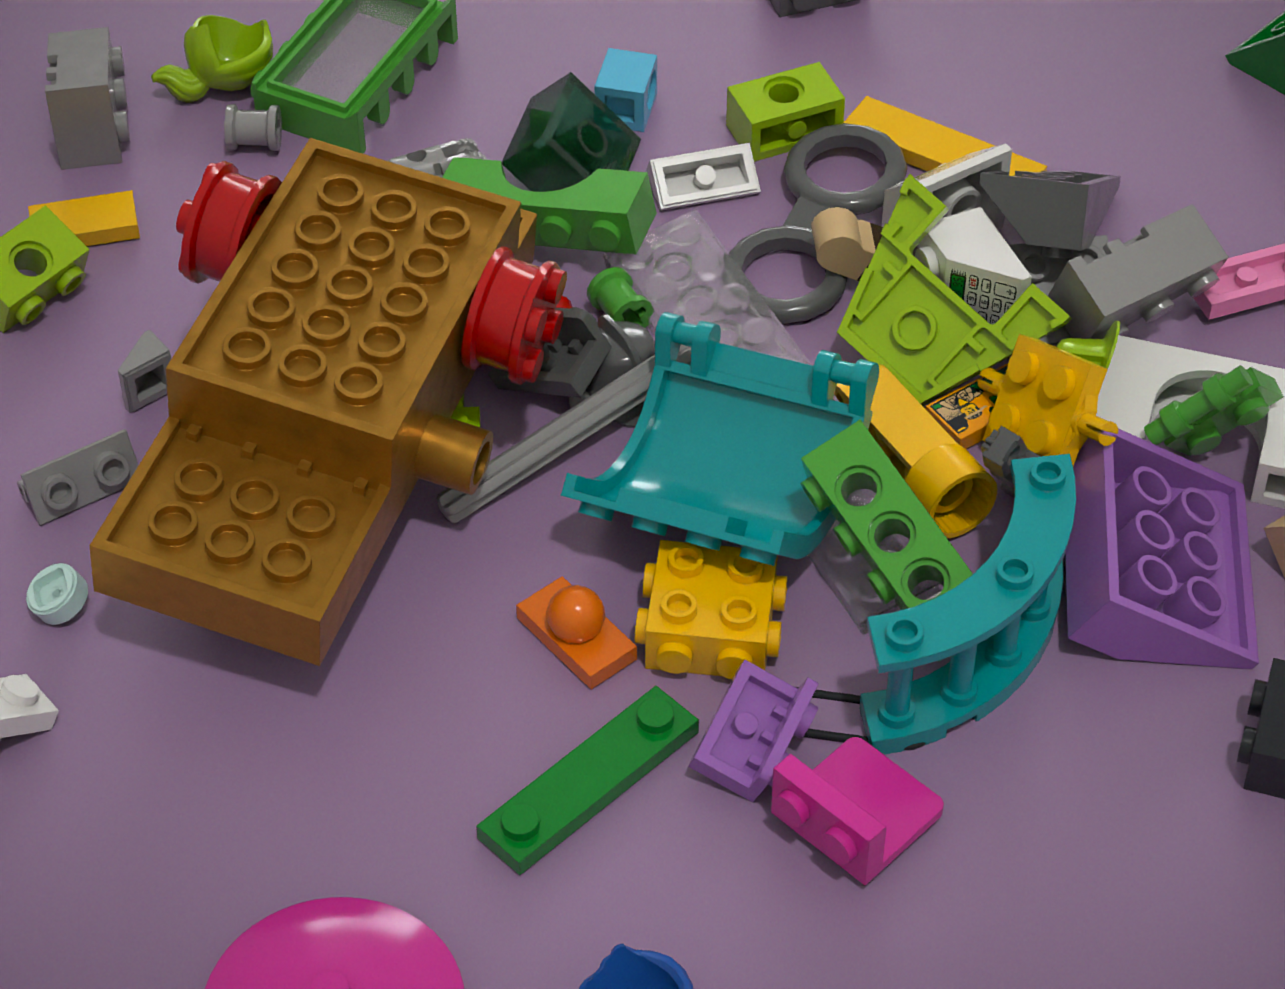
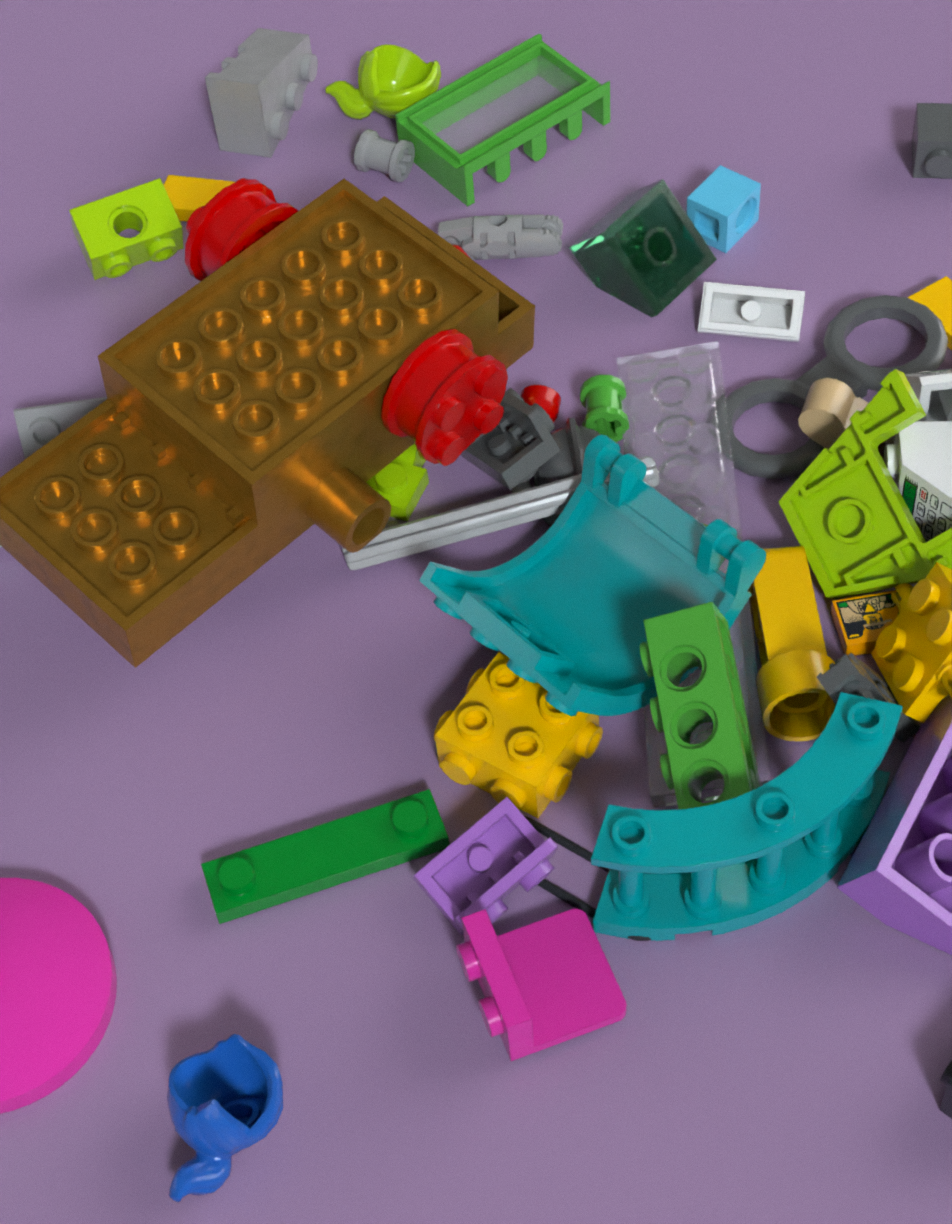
camera: 30 degrees right, 5 degrees up
(576, 630) = (394, 711): orange tile -> none
(600, 213) = (622, 320): bright green arch -> none
(783, 108) = (856, 266): lime brick -> none

